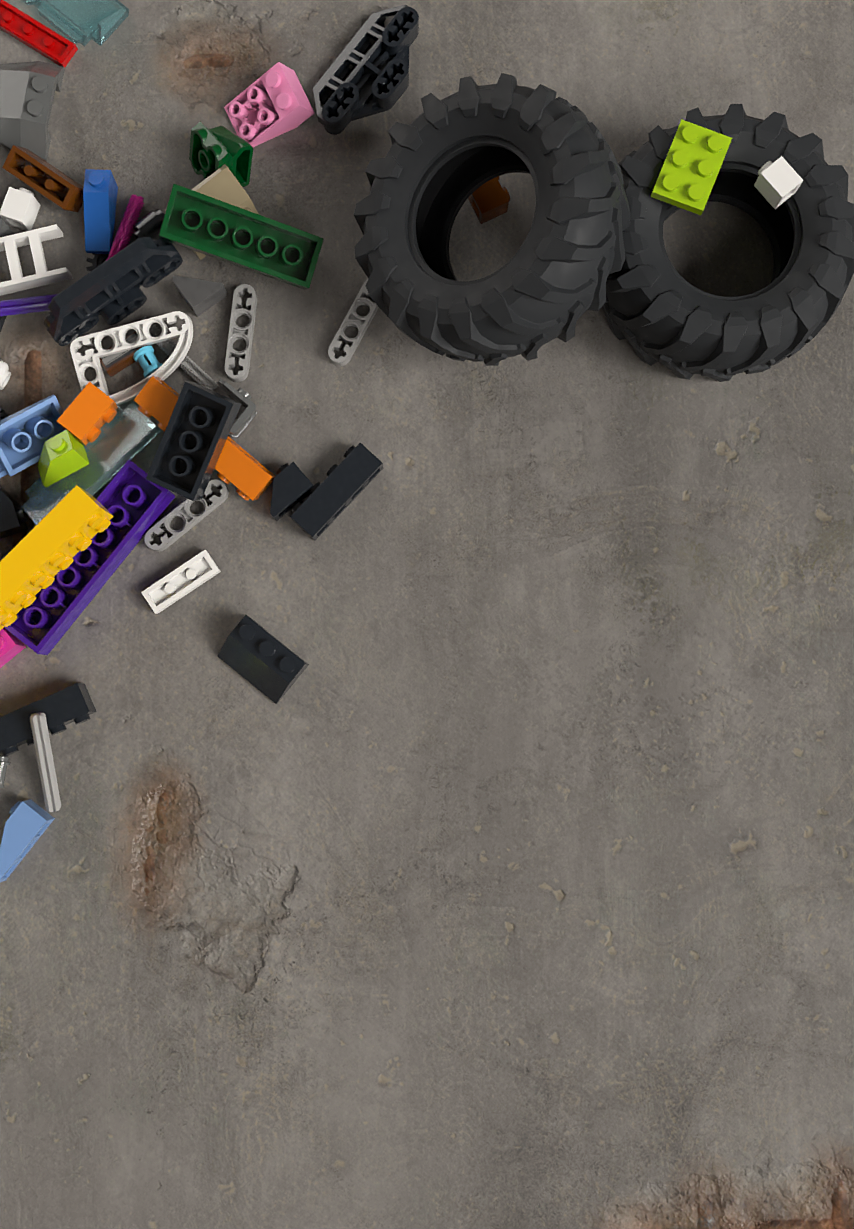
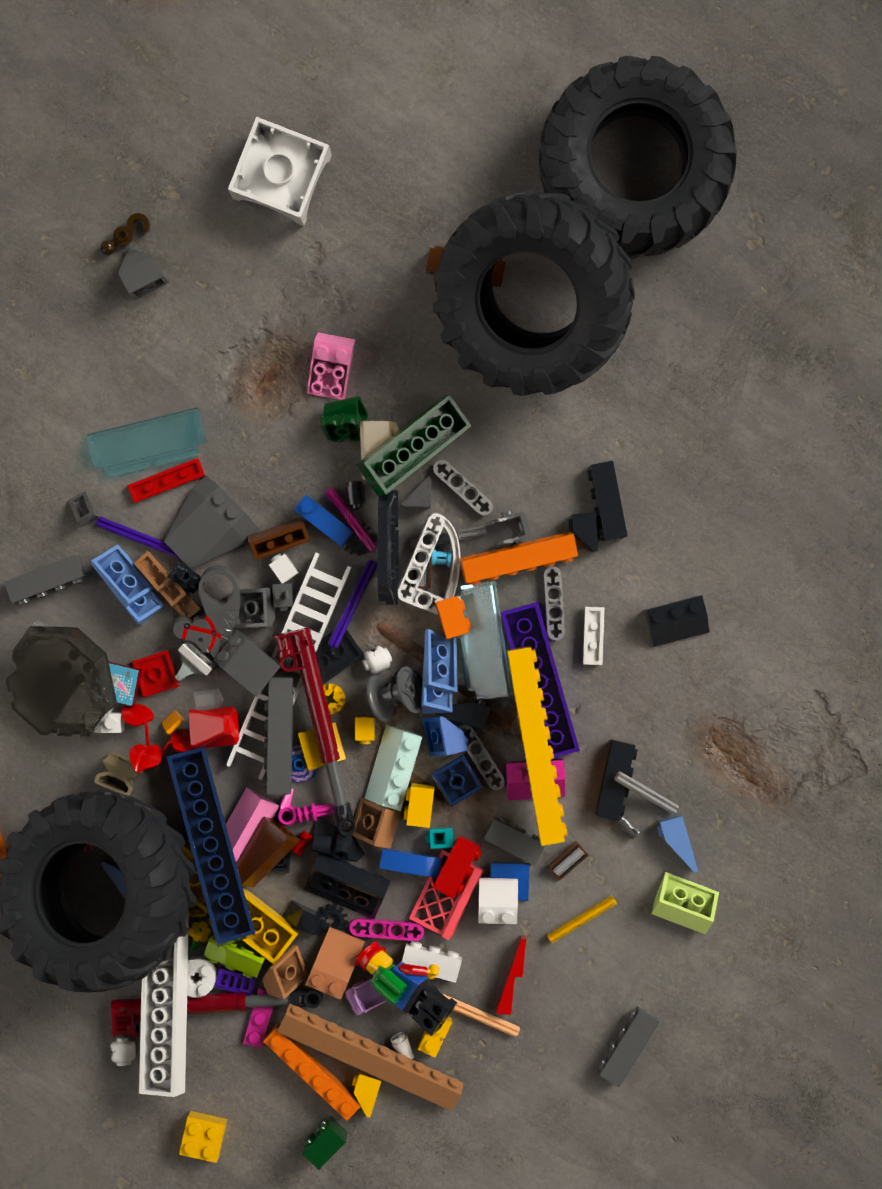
camera: 60 degrees left, 5 degrees up
(61, 457) = (467, 654): lime slope -> none
(193, 441) = (523, 564): black brick -> none
(354, 320) = (505, 412): light grey beam -> none
(383, 65) = (353, 281): black connector -> none
(691, 167) = (588, 147): lime plate -> none
(777, 181) = (636, 105): white brick -> none

